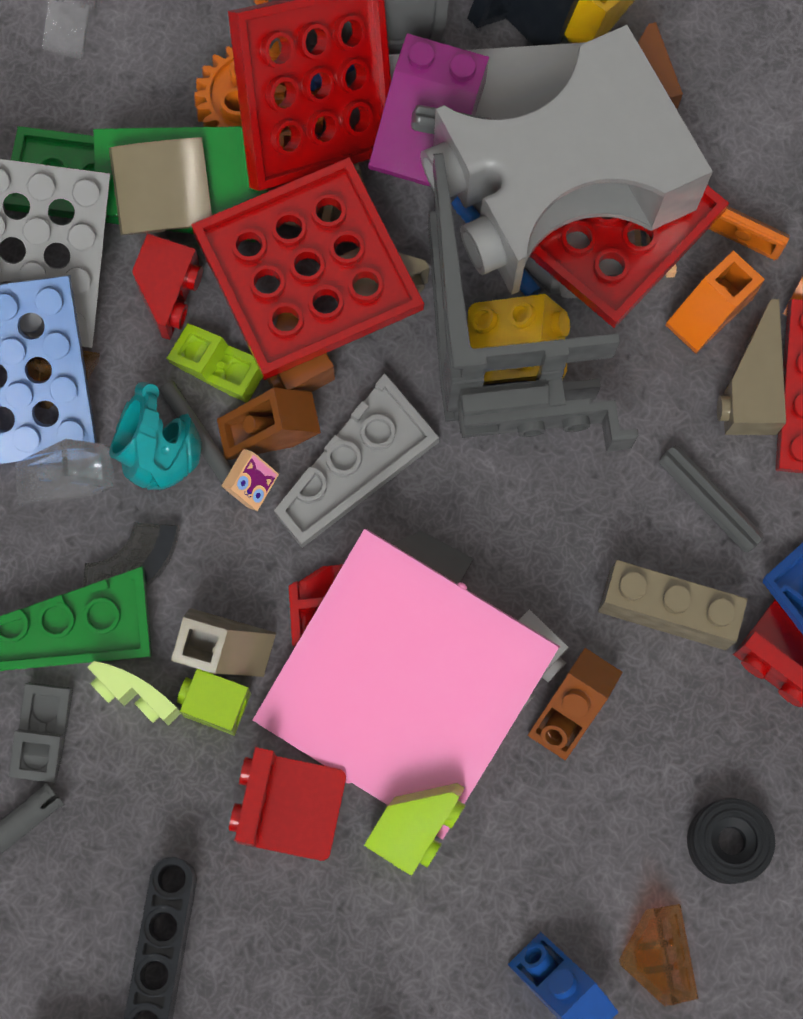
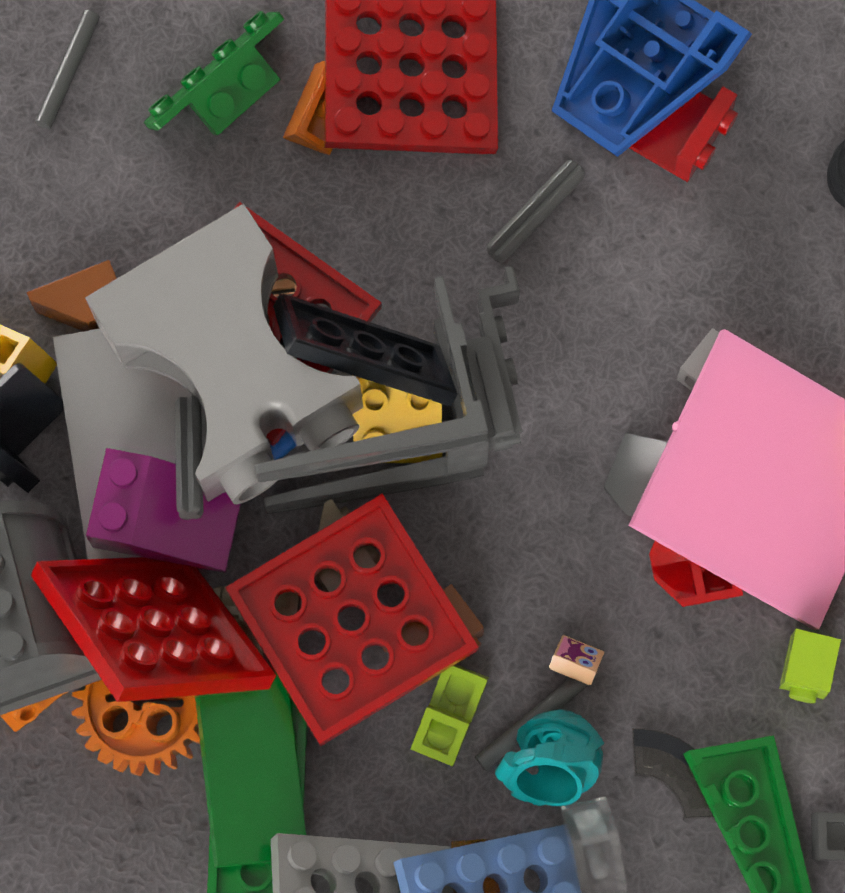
camera: 90 degrees left, 0 degrees up
(118, 683) = (807, 757): yellowish green slope -> none
(160, 185) = (277, 783): dark tan slope -> none
(164, 278) = (368, 778): red slope -> none
(222, 645) = (753, 666): dark tan slope -> none
(269, 423) = (515, 648): dark orange slope -> none
(364, 456) = (537, 551): light grey wing -> none
(565, 274) = (364, 349): none -> black plate
(575, 704) = (760, 319): dark orange slope -> none
(672, 605) = (653, 238): dark tan brick -> none
(715, 301) = (334, 215): orange slope -> none
(751, 233) = (246, 181): orange slope -> none
(755, 392) = (411, 173): dark tan slope -> none

